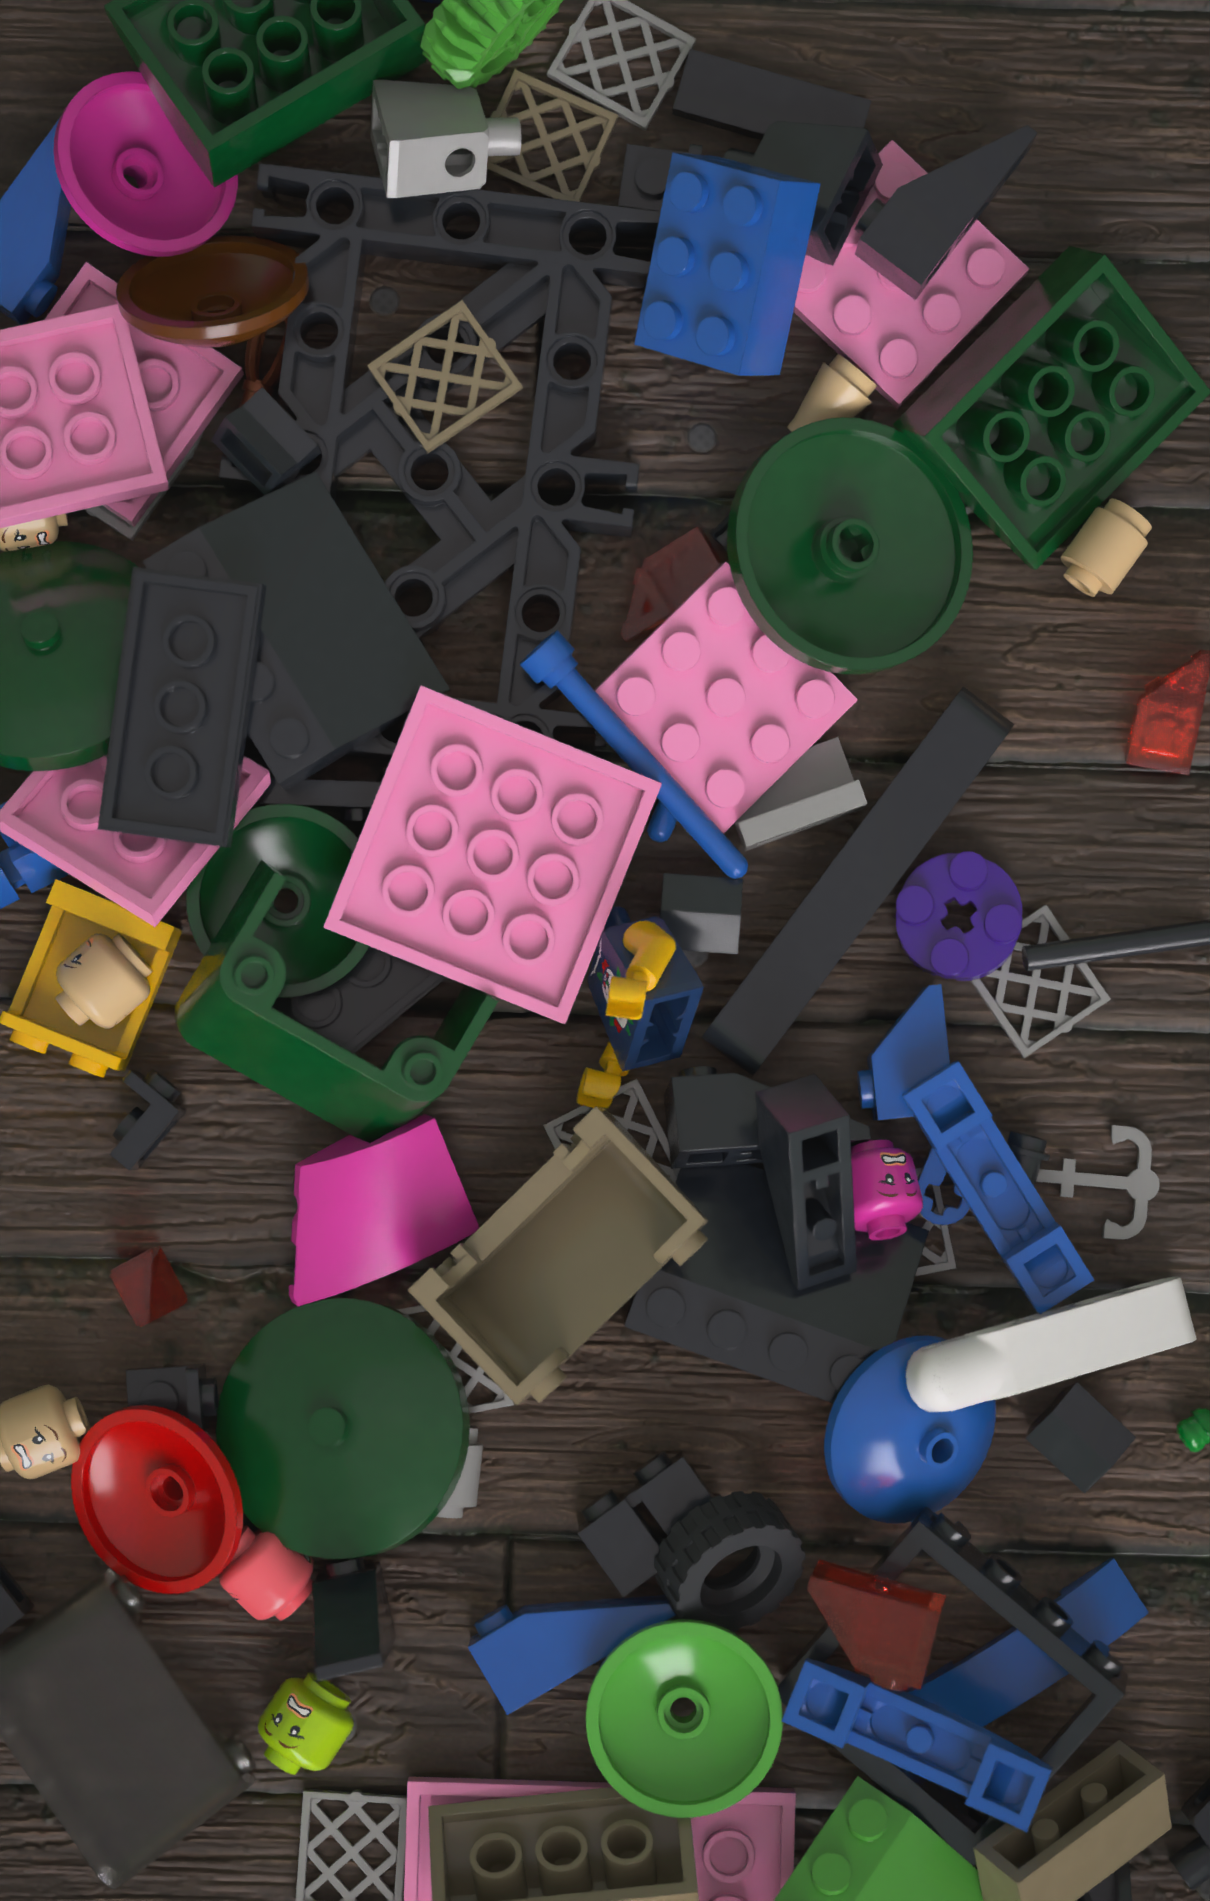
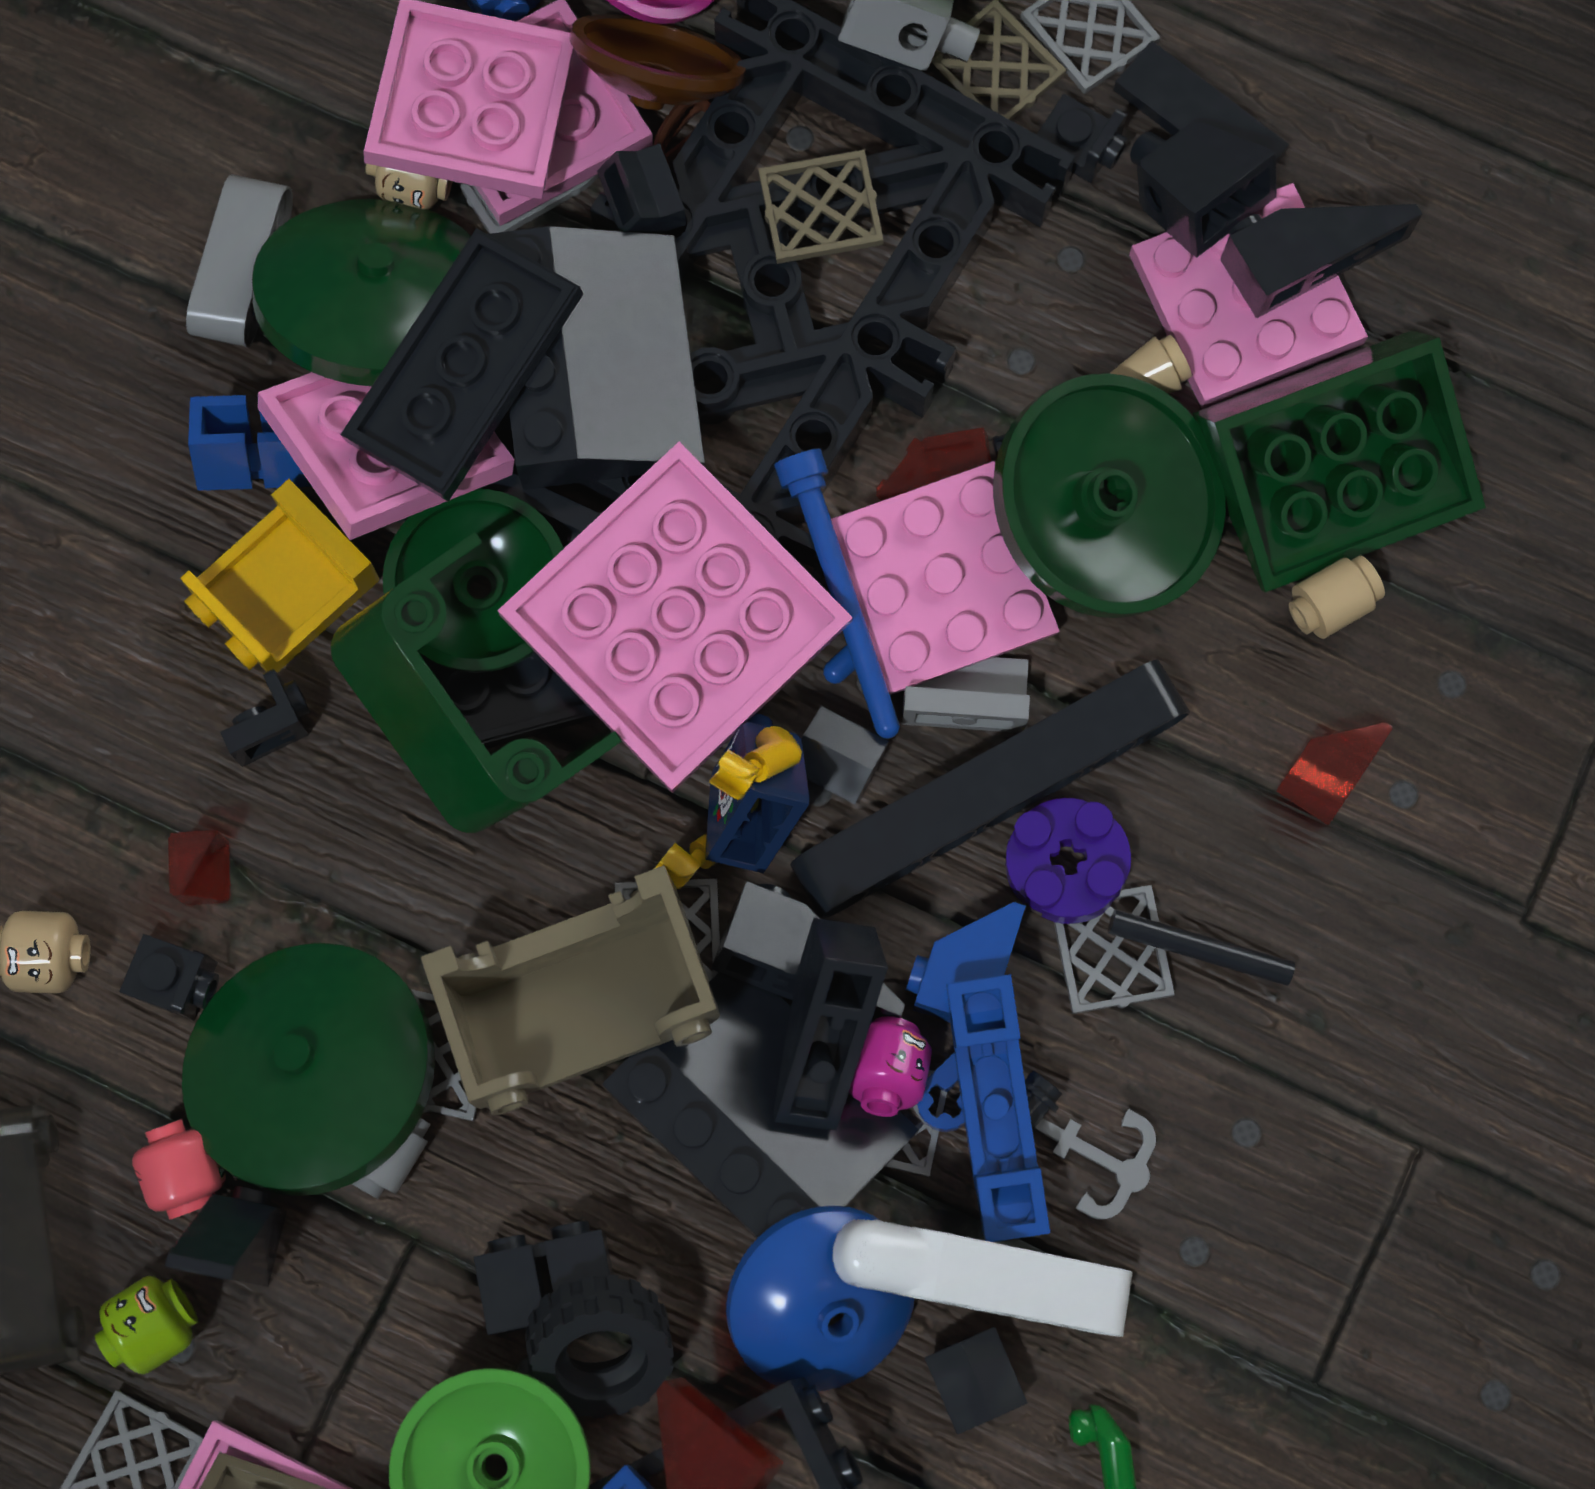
camera: 20 degrees right, 10 degrees down
(103, 981) = (287, 584): tan head -> none
(139, 1514) = (112, 1055): red dish -> none
(374, 1209) = (430, 886): dark pink slope -> none
(551, 1642) = (396, 1351): blue slope -> none
(726, 264) = (1105, 210): blue brick -> none

